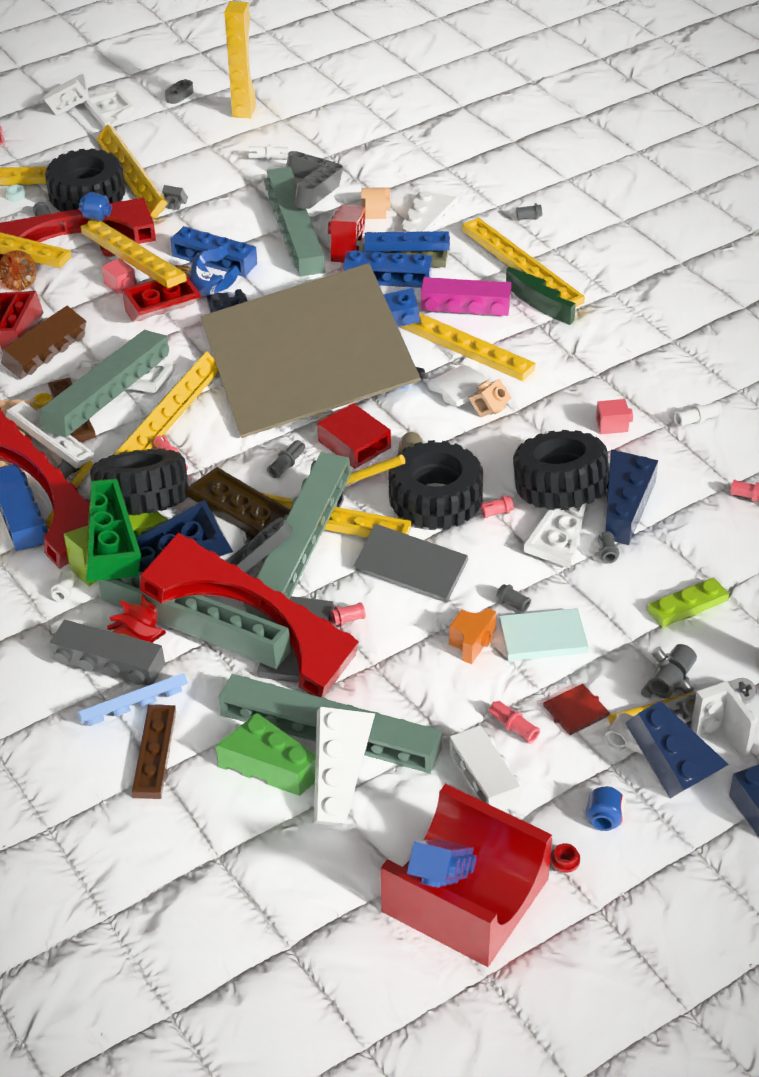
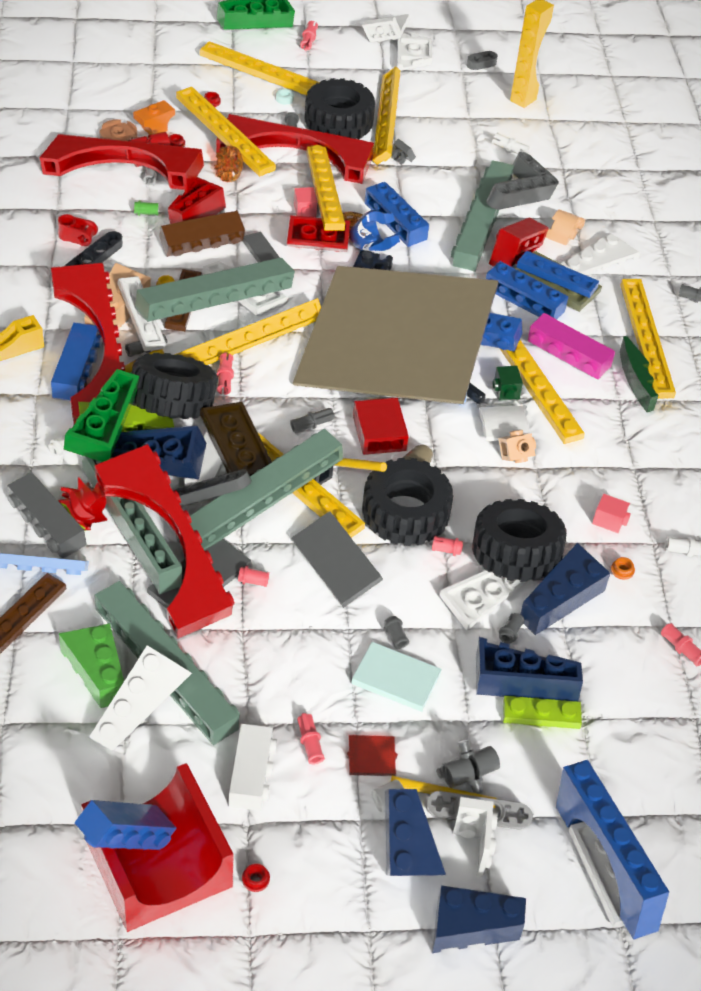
camera: 25 degrees right, 5 degrees up
(95, 206) = (324, 135): blue head -> none
(108, 334) = (260, 247): none -> dark grey tile
(436, 350) = (507, 382): none -> dark green brick
(472, 632) = (337, 645): orange brick -> none
(605, 808) = (321, 854): blue head -> none
(652, 576) = (525, 674): none -> dark blue wedge
(659, 453) = (623, 568): none -> orange plate

